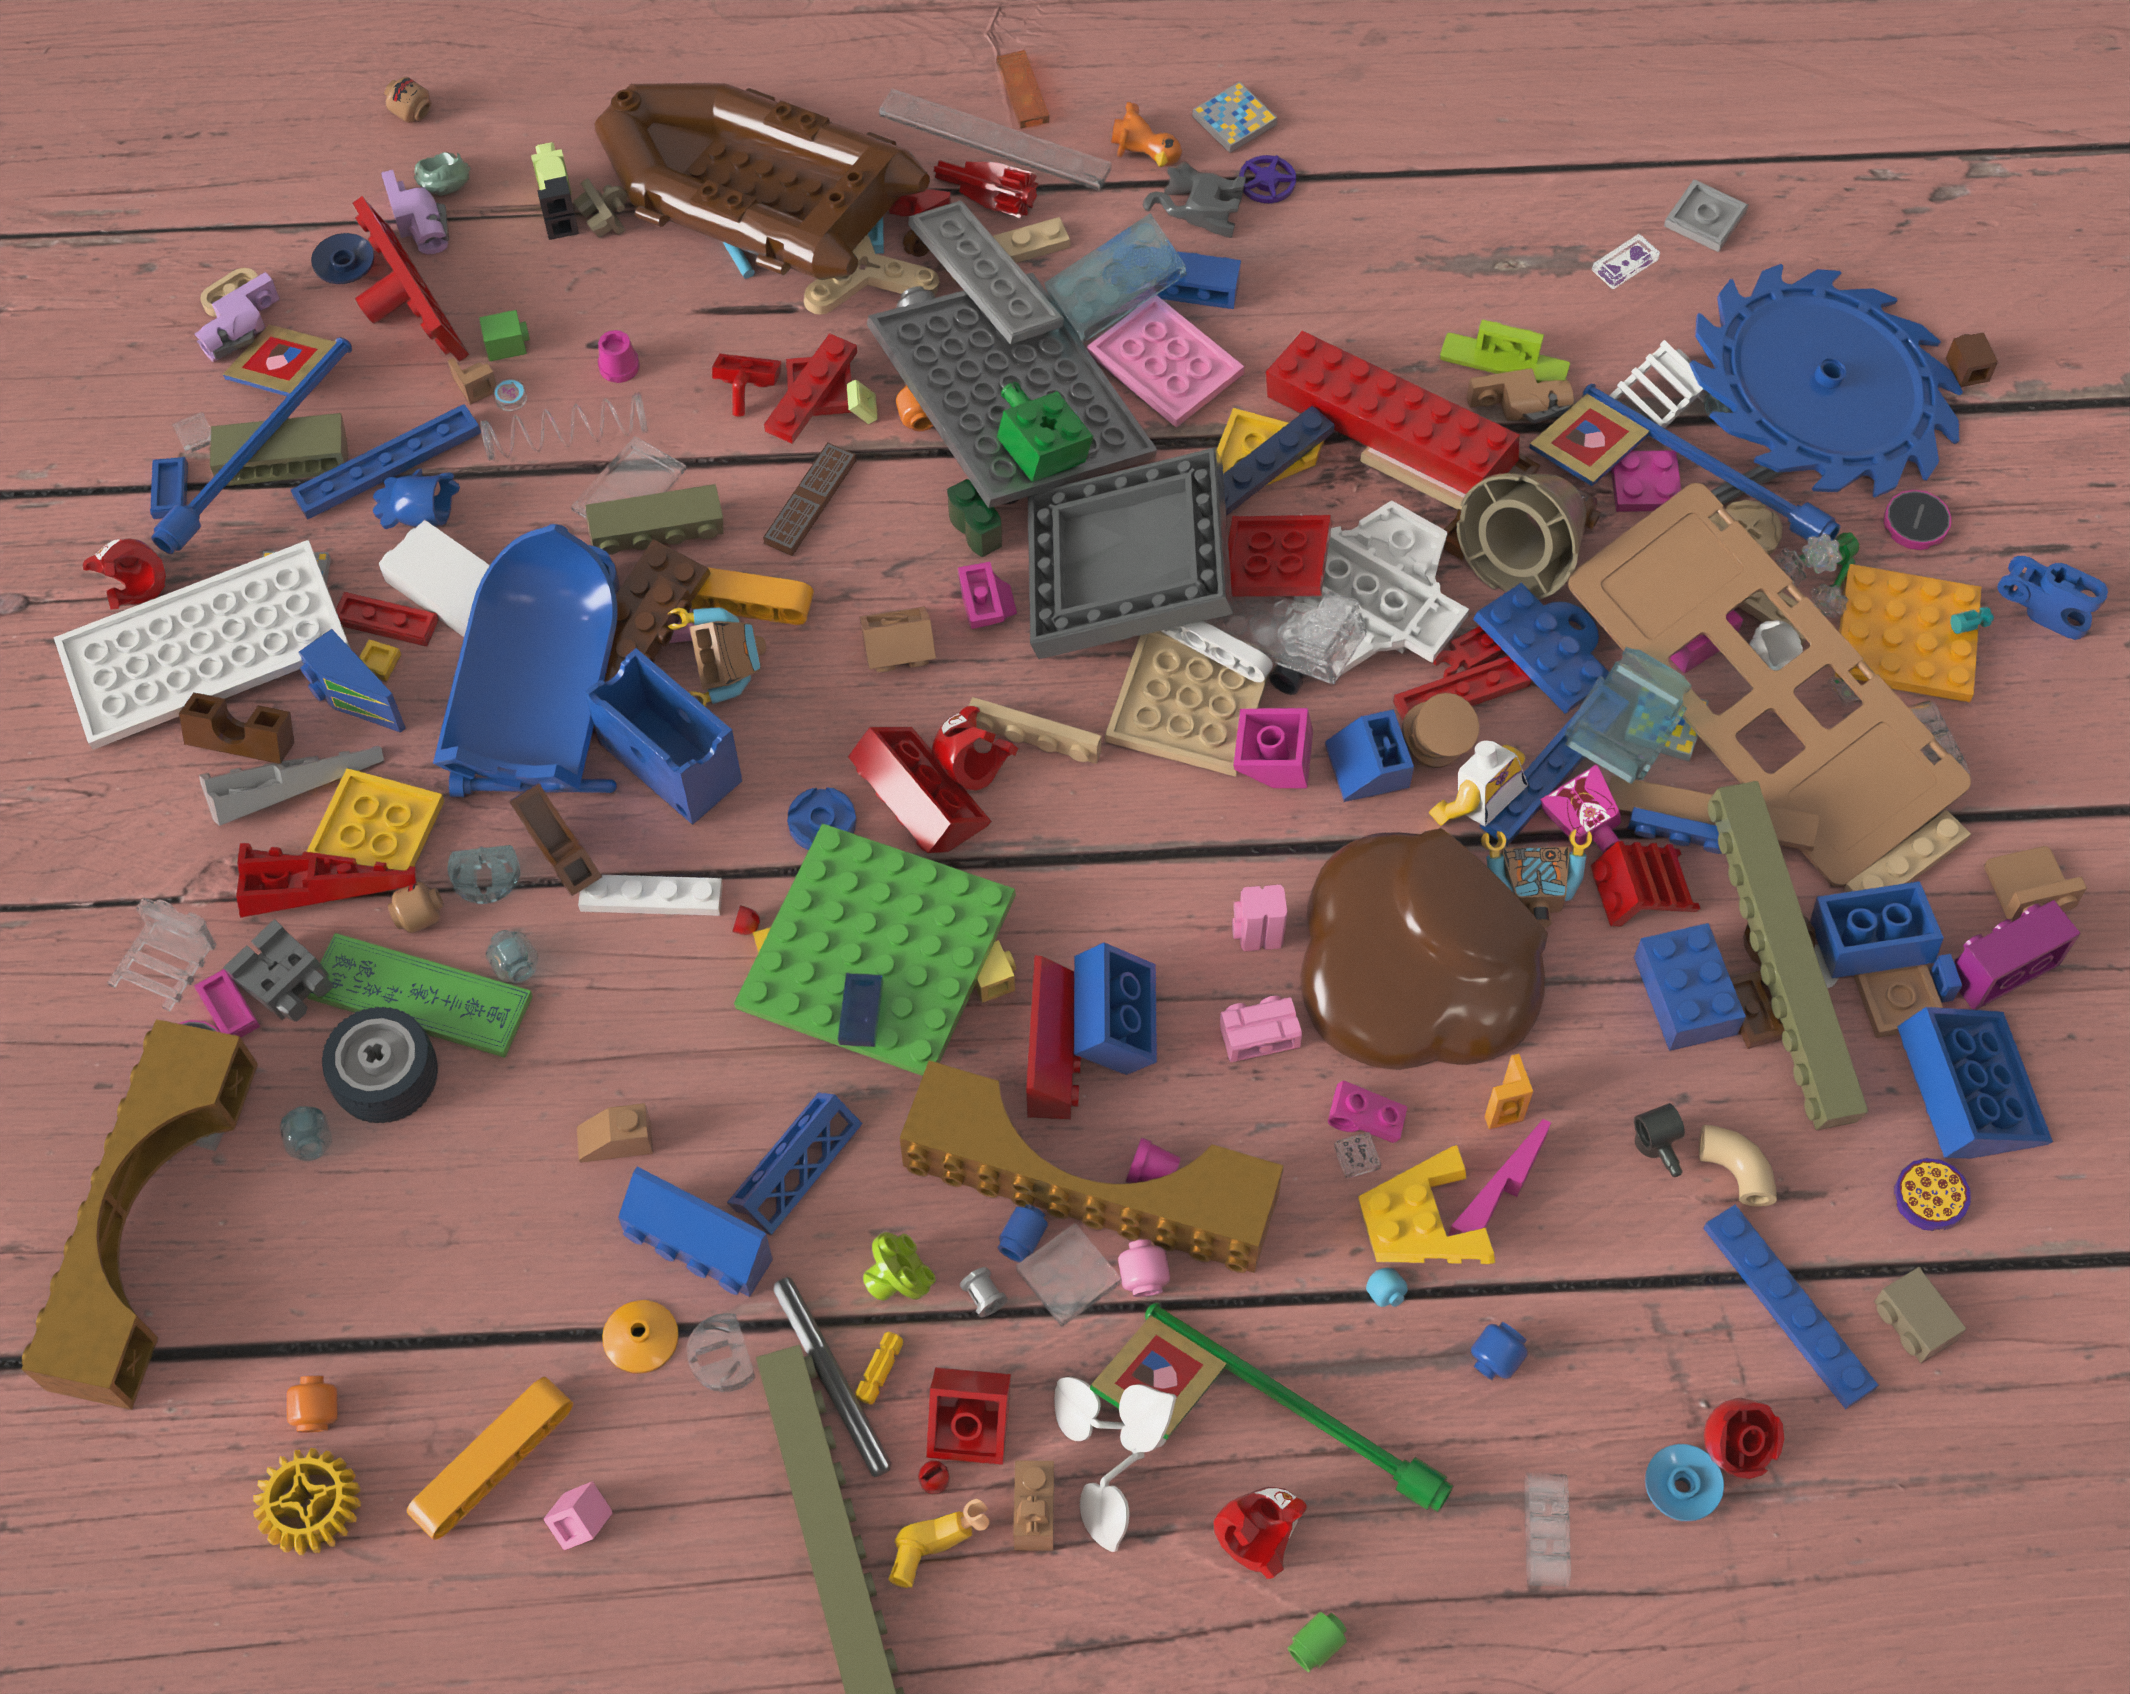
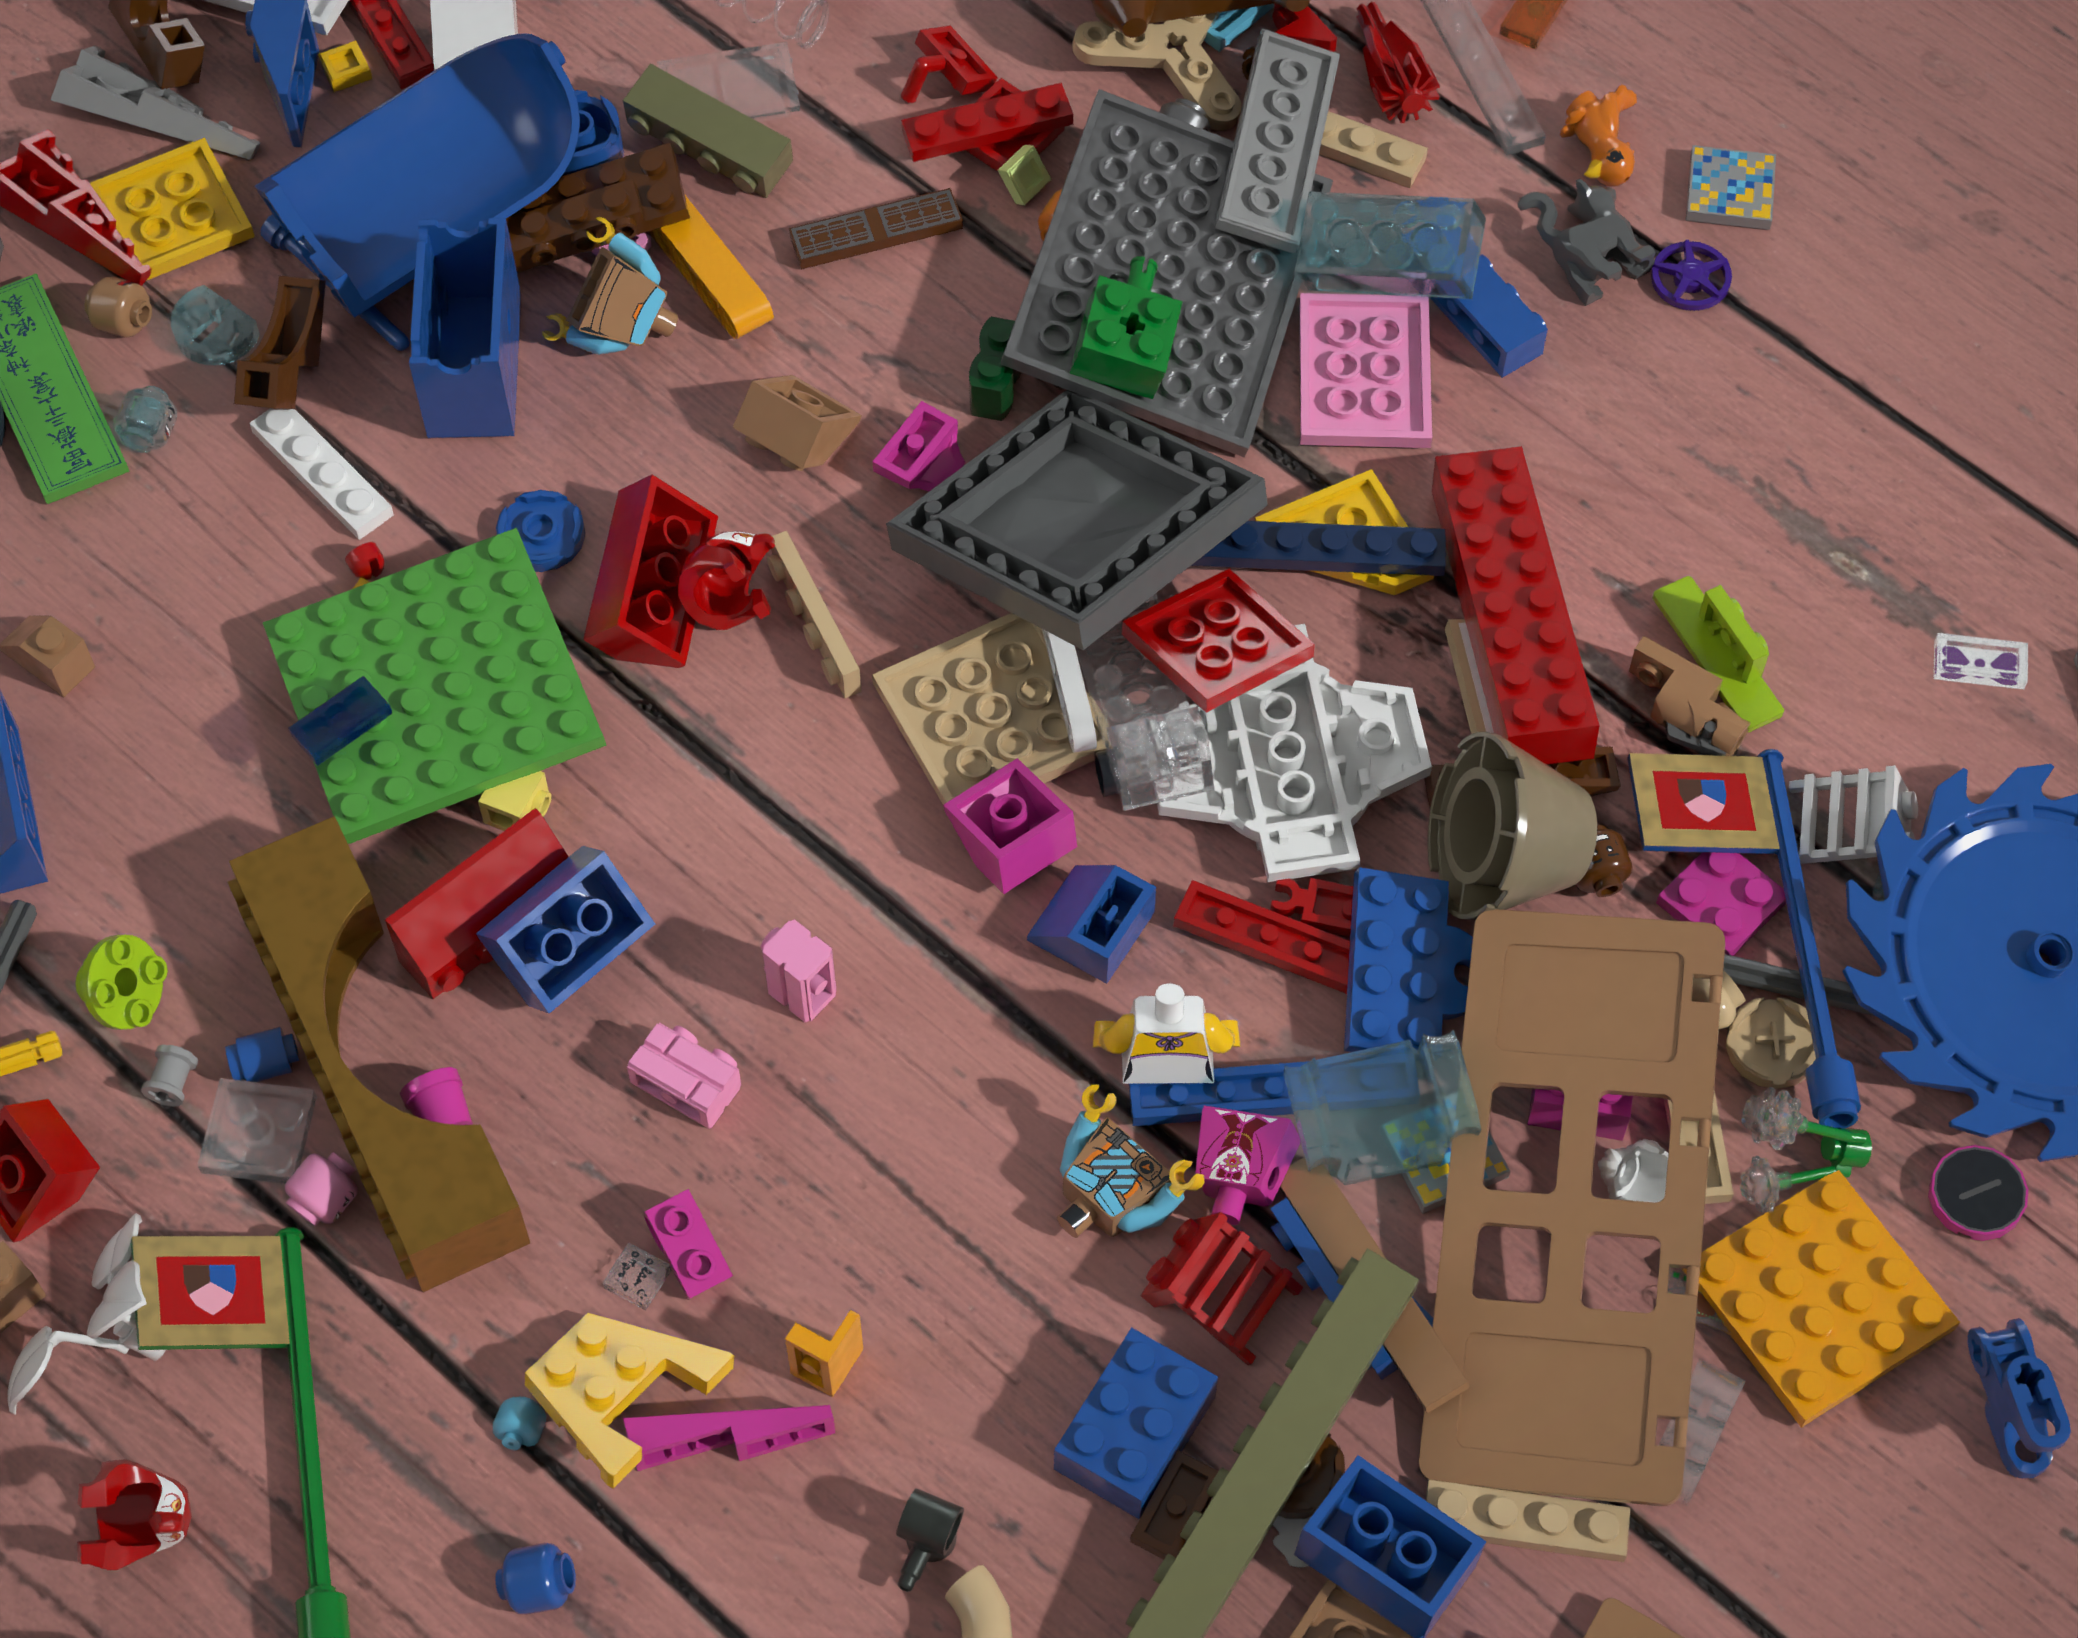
camera: 45 degrees right, 0 degrees up
(785, 1154) = (157, 795): blue fence -> none
(1419, 954) = (911, 1146): reddish brown plant -> none
(1440, 729) = (1183, 947): medium nougat hat -> none
(1970, 620) = (1889, 1339): teal piece -> none

